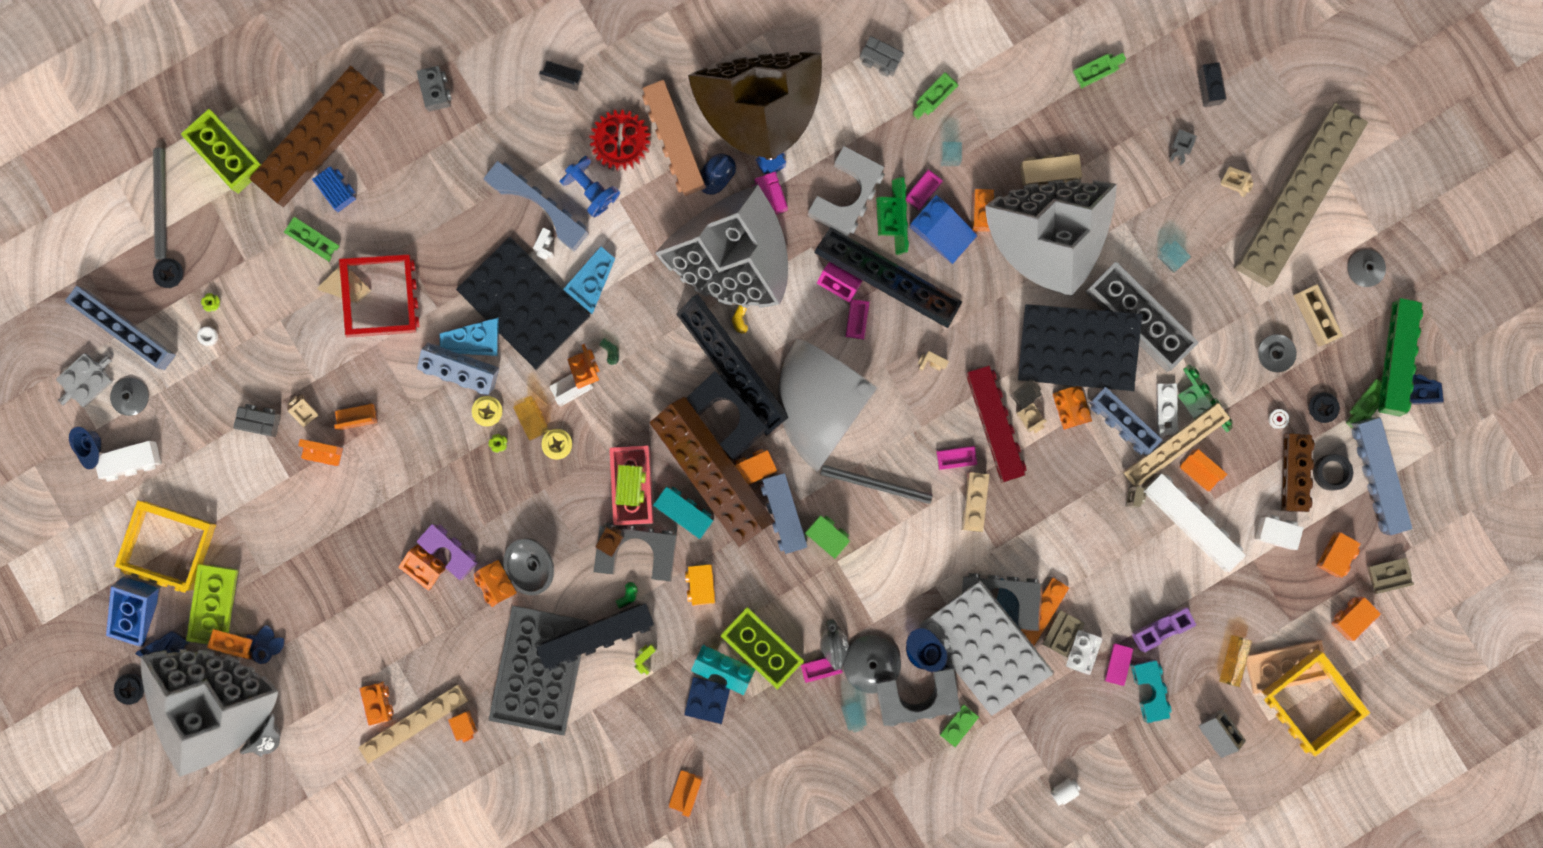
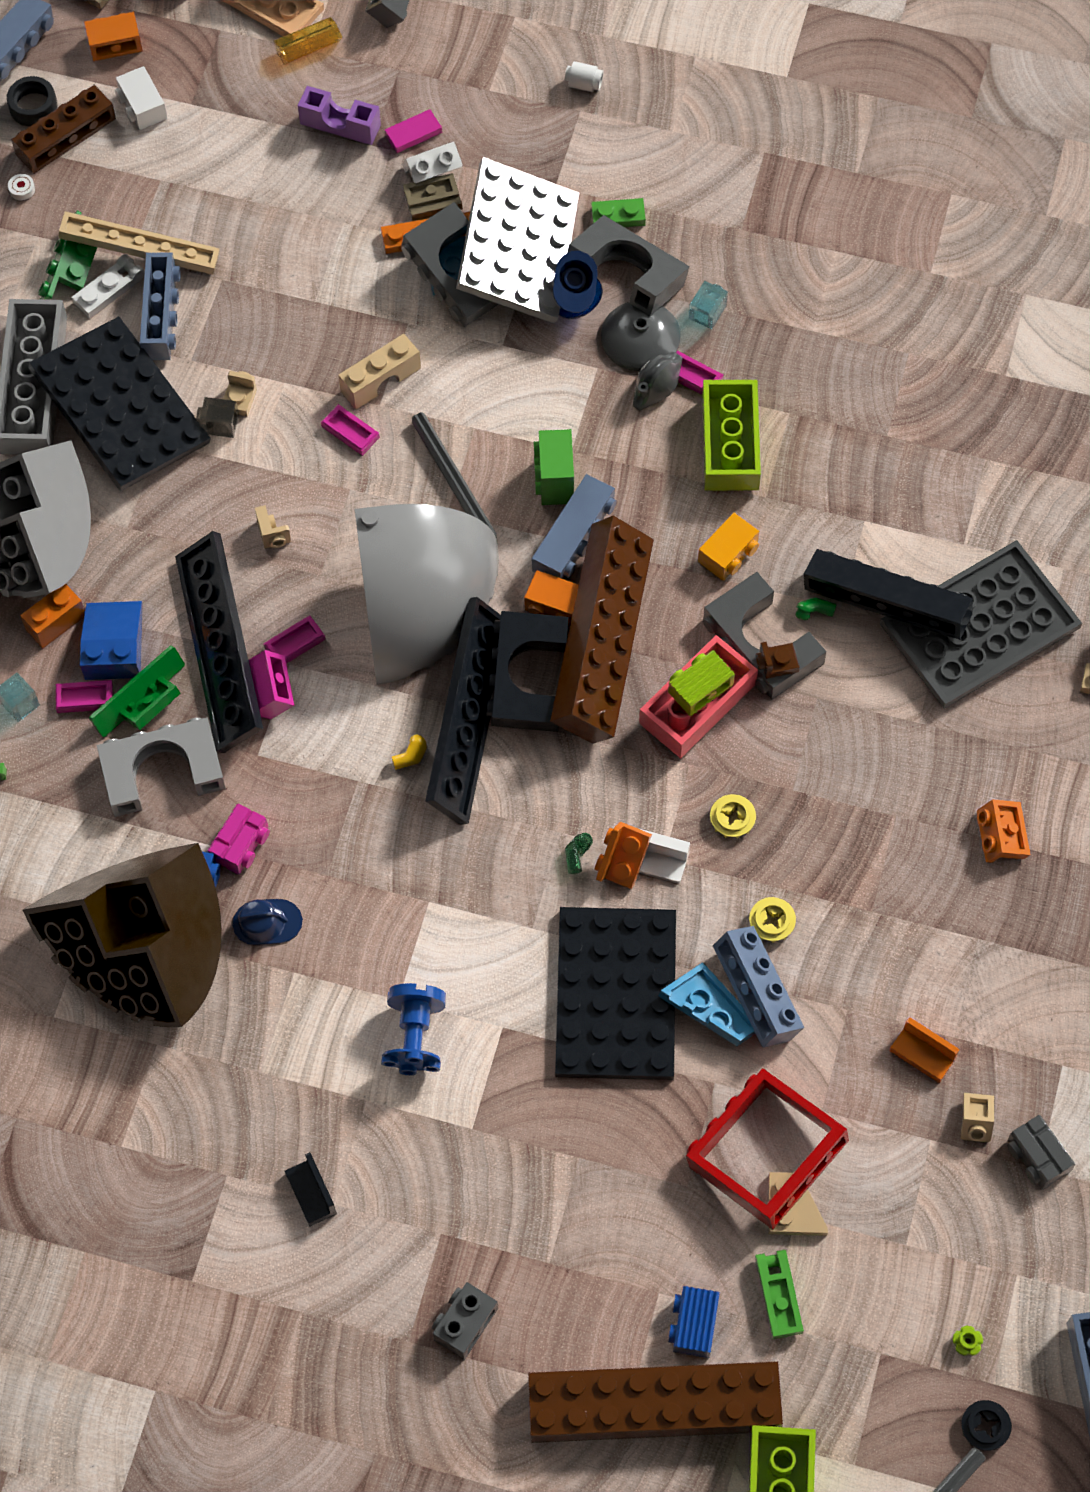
camera: 135 degrees left, 20 degrees down
(207, 336) = (1008, 1308): white tile -> none
(320, 452) = (998, 1049): orange bracket -> none
(461, 561) = (960, 843): medium lavender arch -> none
(494, 583) = (943, 744): orange bracket -> none
(501, 447) = (794, 883): lime plate -> none
(506, 182) = (497, 1132): sand blue arch -> none
(522, 569) = (898, 716): dark grey dish -> none
(531, 418) = (732, 867): clear yellow panel -> none
(543, 241) = (526, 1029): white bracket -> none
(590, 280) = (519, 943): dark azure wing -> none
(603, 139) = (344, 1072): red gear -> none
(644, 653) = (858, 537): lime bracket -> none
(673, 137) = (268, 997): nougat brick -> none
(684, 512) = (671, 625): teal brick -> none
(685, 792) = (945, 386): orange panel -> none
(707, 700) = (836, 446): dark blue plate -> none
(713, 662) = (783, 437): teal arch -> none
(732, 251) = (342, 814): light grey brick -> none
(995, 424) = (278, 419): dark red brick -> none
(1072, 407) = (192, 367): orange bracket -> none
(1135, 497) = (230, 235): dark tan plate -> none
(1156, 707) = (420, 68): teal arch -> none
(1194, 522) = (204, 173): white brick -> none
(1202, 470) = (141, 207): orange panel -> none

